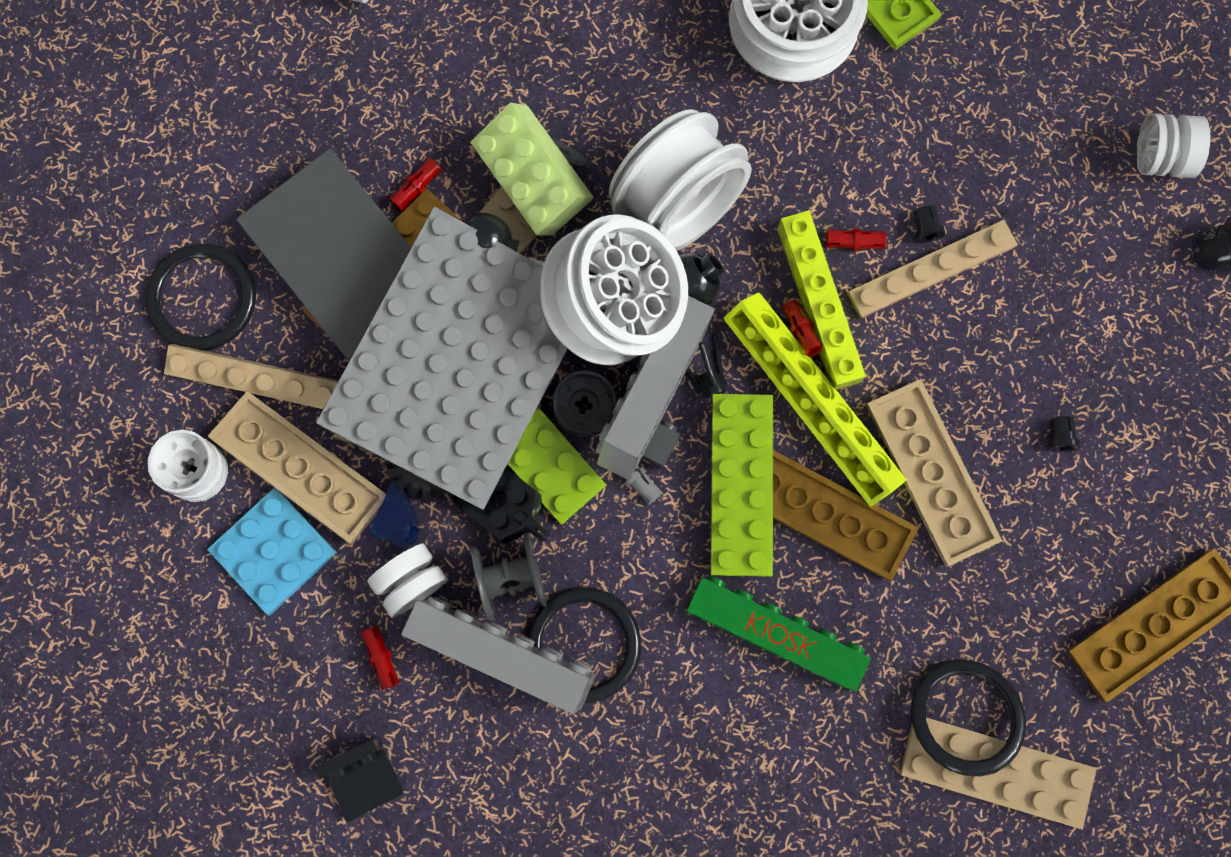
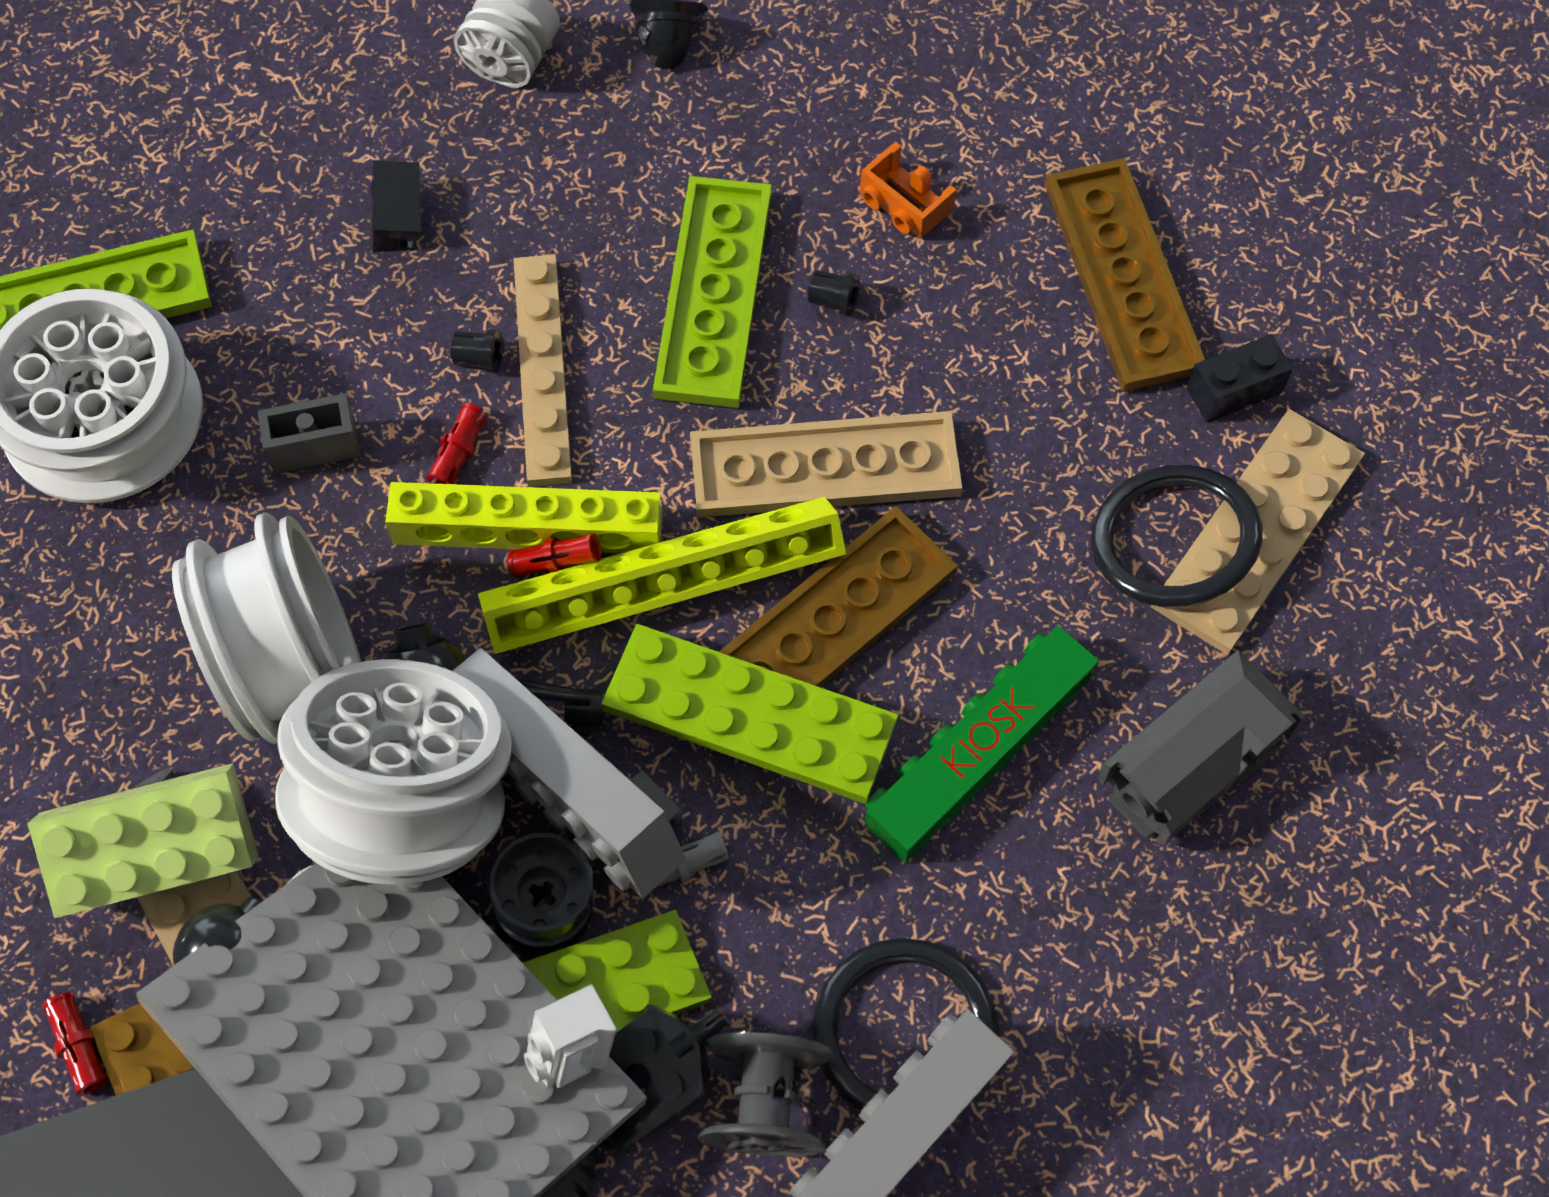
camera: 70 degrees left, 15 degrees down
(489, 453) = (569, 1038): none -> white window
(822, 774) = (1199, 749): none -> dark grey brick
(826, 147) = (309, 433): none -> dark grey brick
(1011, 129) = (395, 205): none -> black hinge
(1033, 355) = (713, 292): none -> lime plate
(1104, 727) = (1239, 378): none -> black brick
(1170, 460) = (916, 185): none -> orange window

